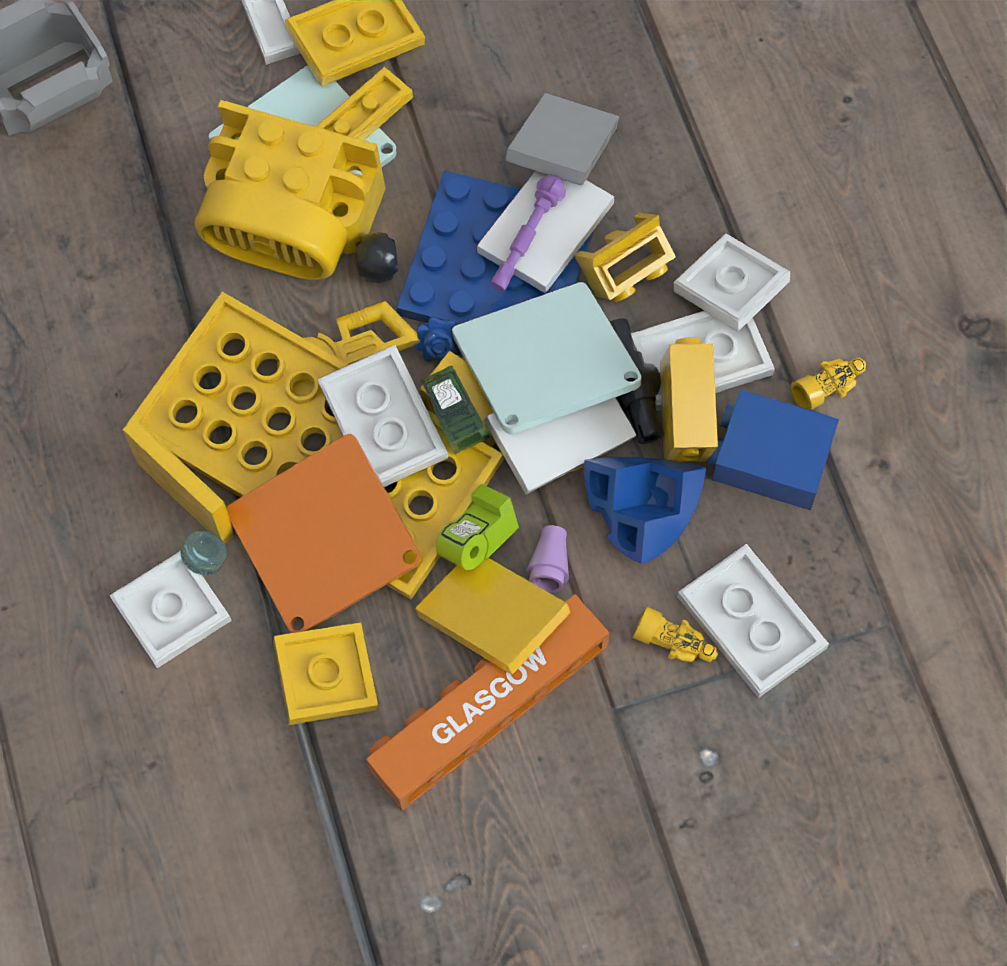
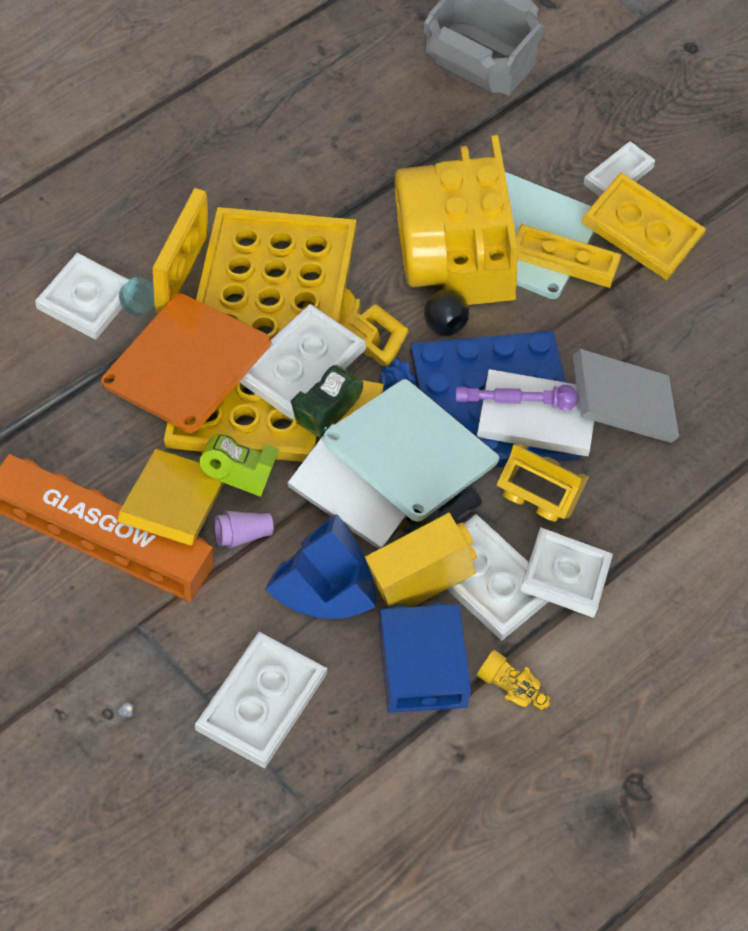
camera: 60 degrees right, 10 degrees down
(325, 673) = (75, 411): yellow plate -> none
(681, 640) = (216, 651): yellow piece -> none

